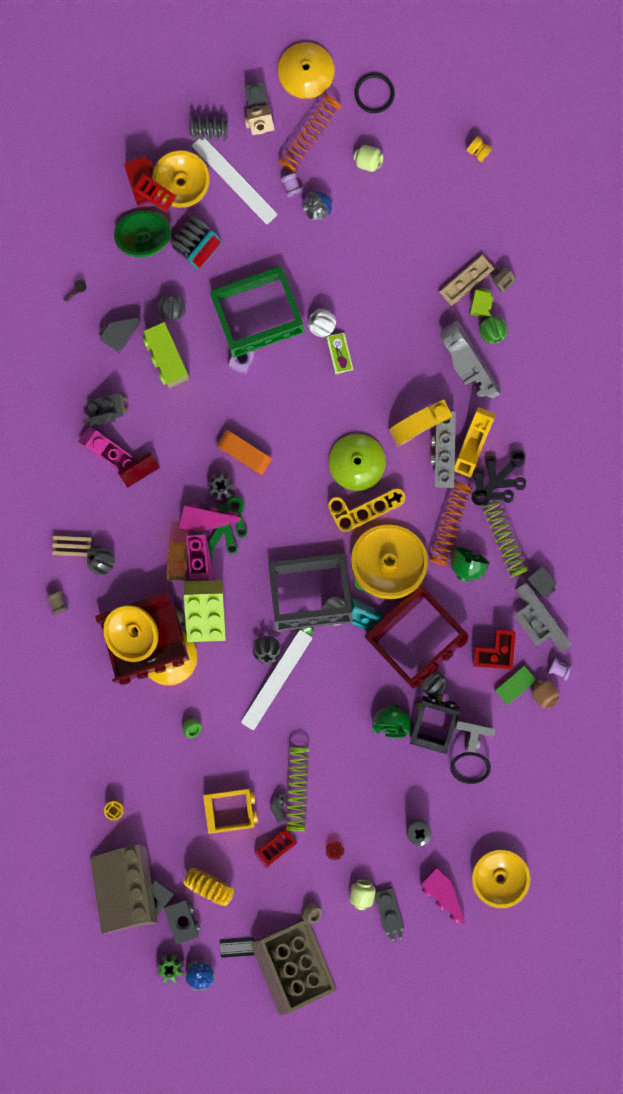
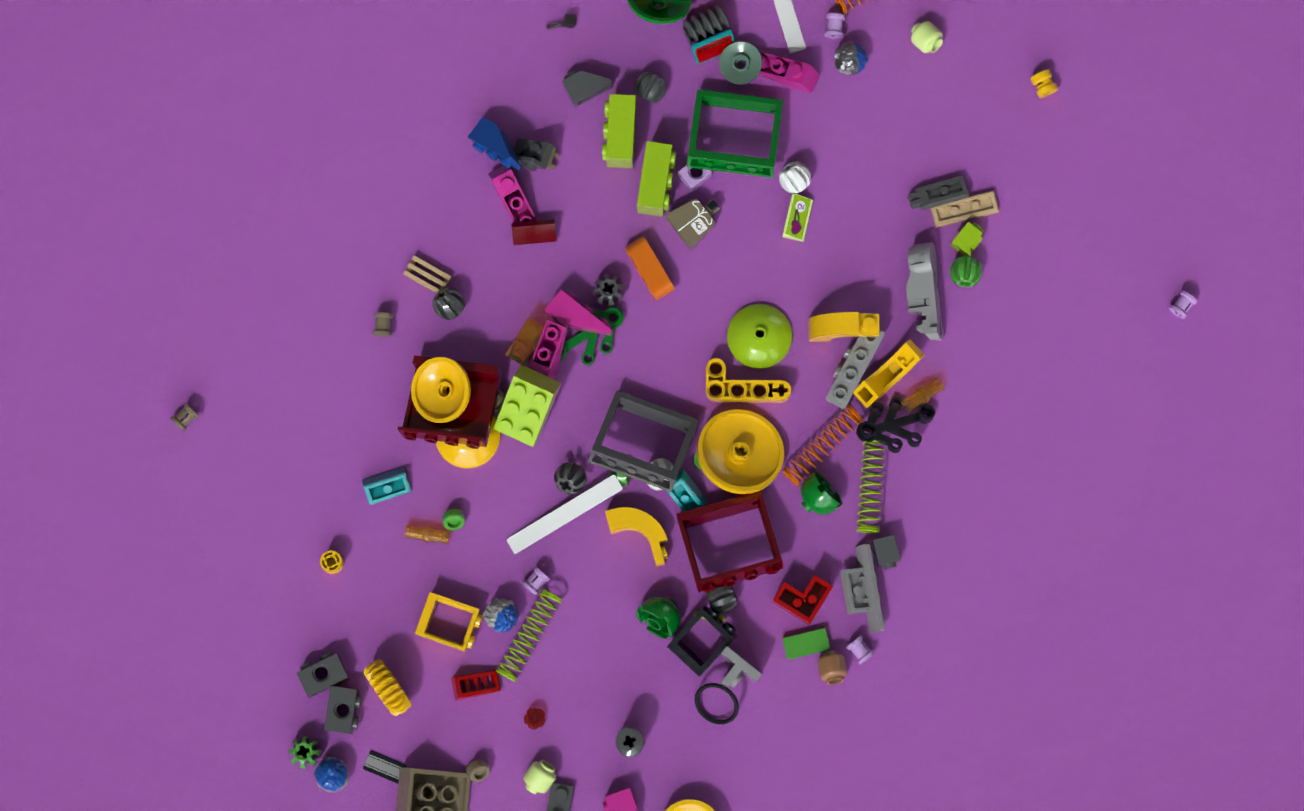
camera: 30 degrees right, 5 degrees down
(71, 413) = (495, 142): none -> blue slope
(123, 889) = (300, 646): dark tan slope -> none
(125, 728) = (386, 485): none -> teal slope
(177, 750) = (427, 534): none -> clear yellow pin
(213, 379) = (656, 179): none -> lime brick
(225, 246) = (733, 55): none -> sand green dish
(259, 397) = (693, 221): none -> dark tan torso
(268, 784) = (501, 615): none -> piece
(270, 241) = (789, 72): none -> dark pink slope
(277, 805) = (499, 643): dark grey arm -> none
(281, 744) = (535, 581): none -> lavender bush
(340, 655) = (637, 520): none -> yellow arch
(441, 278) = (938, 193): none -> dark grey hinge
(503, 279) = (1002, 226): dark tan tile -> none
(508, 444) = (922, 394): none -> clear yellow pin

